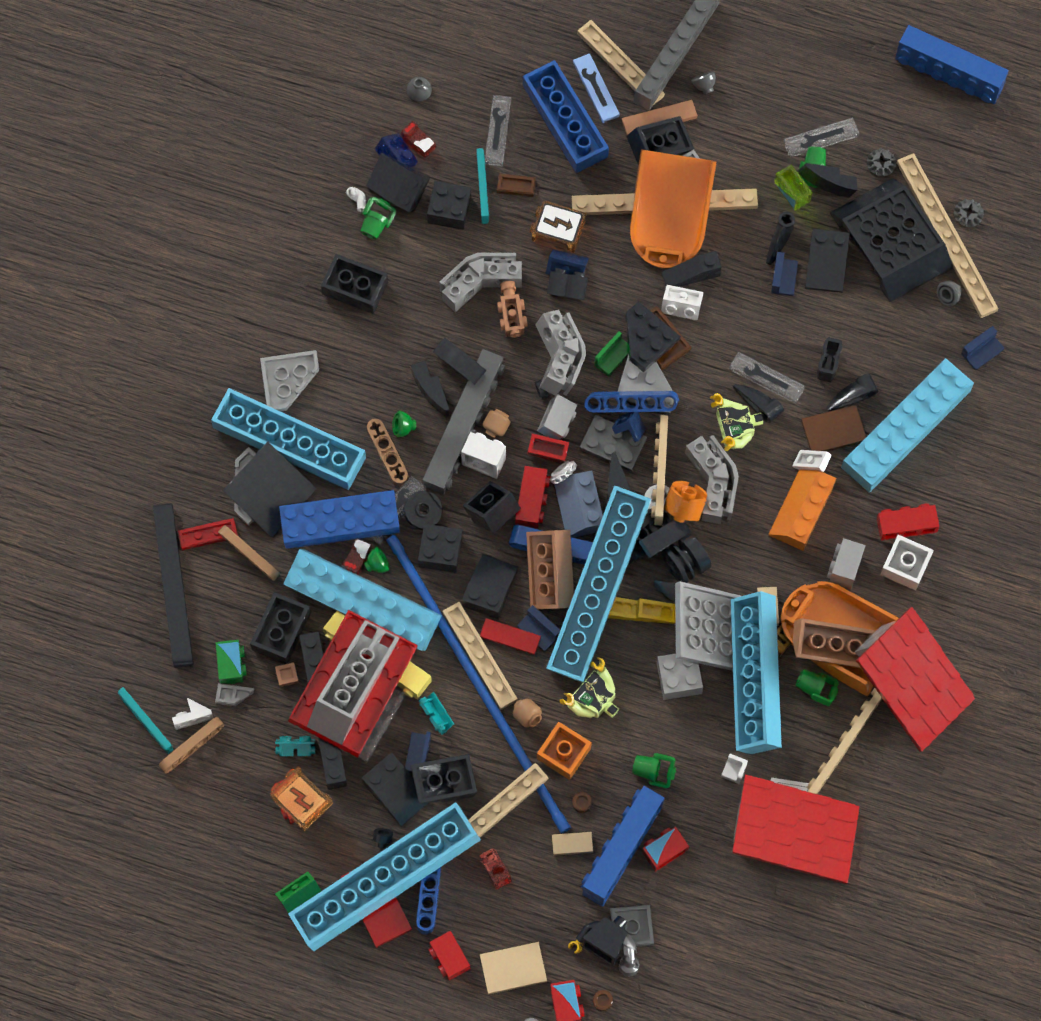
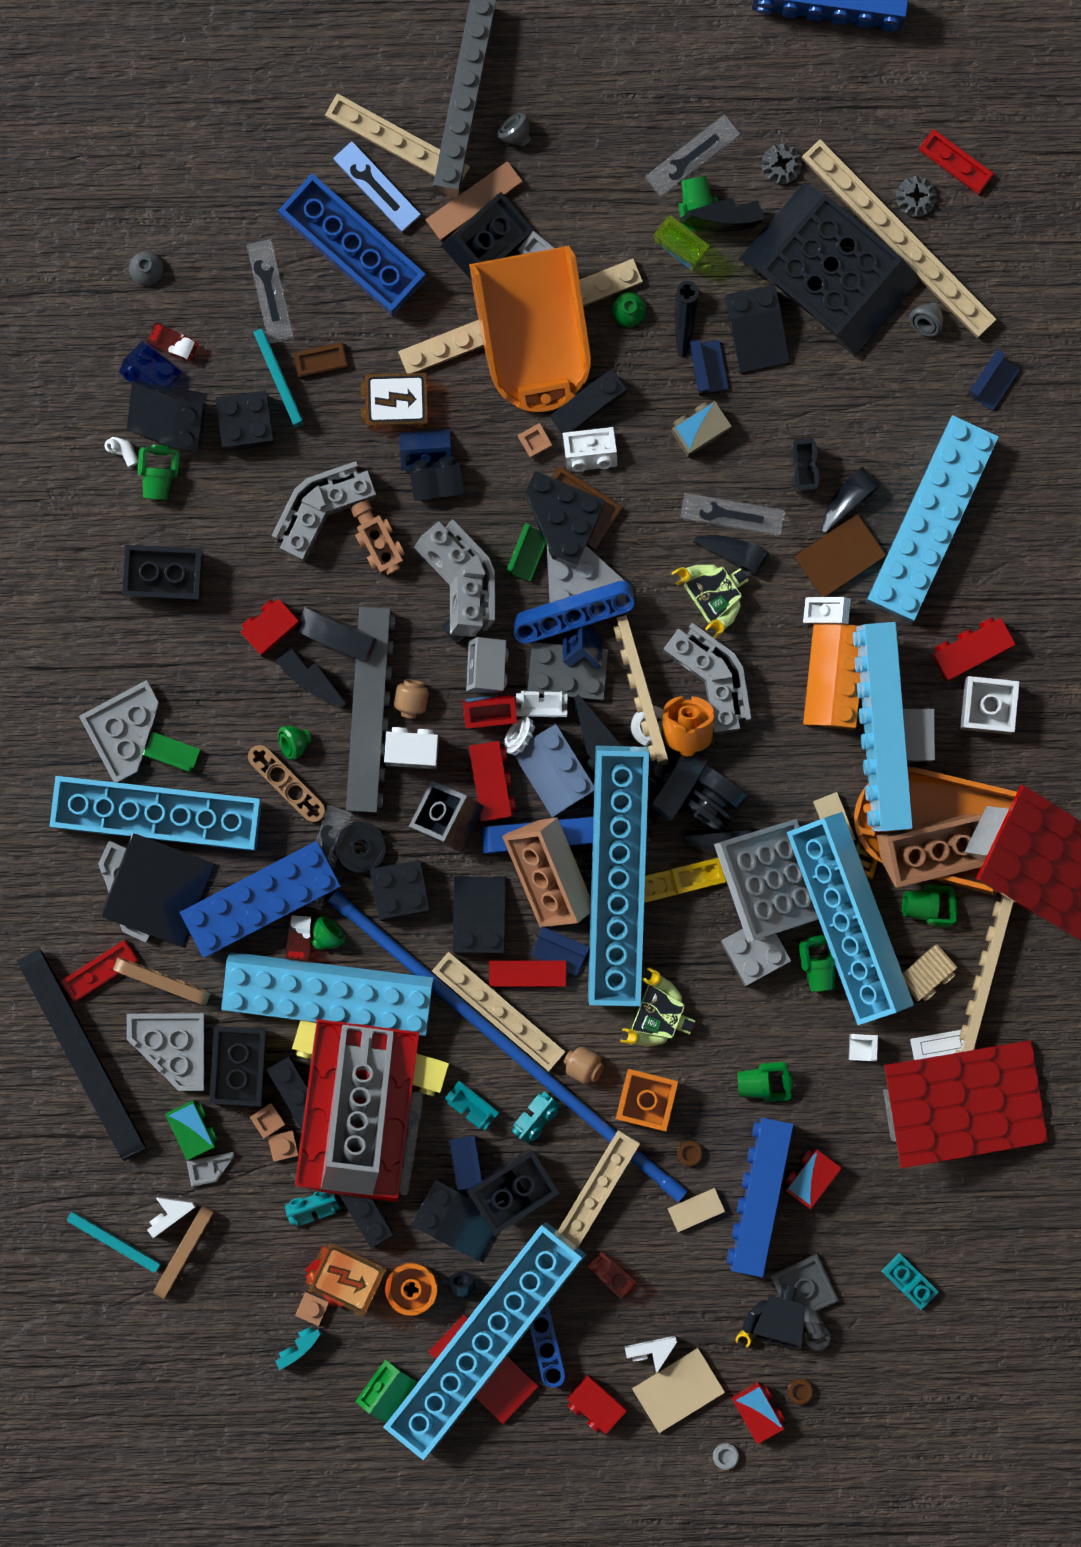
camera: 20 degrees left, 15 degrees up
(238, 600) = (172, 1045): none -> light grey plate
(255, 837) = (304, 1342): none -> teal slope
(268, 817) = (312, 1308): none -> nougat plate
(290, 696) = (283, 1146): none -> nougat plate
(315, 405) = (172, 752): none -> green panel
(349, 835) = (398, 1295): none -> orange brick
(414, 344) = (269, 626): none -> red brick
(487, 735) = (544, 1110): none -> teal hinge
(509, 930) = (659, 1348): none -> white slope
(595, 460) = (530, 705): none -> white hinge
(645, 283) = (534, 440): none -> nougat plate
(711, 948) = (909, 1281): none -> teal slope
(721, 703) = (821, 970): none -> green piece
(741, 221) = (628, 310): none -> green brick
(764, 312) = (700, 428): none -> dark tan brick
(800, 732) = (928, 973): none -> tan brick
(825, 543) = (882, 726): none -> medium azure brick
(1004, 199) = (955, 162): none -> red tile

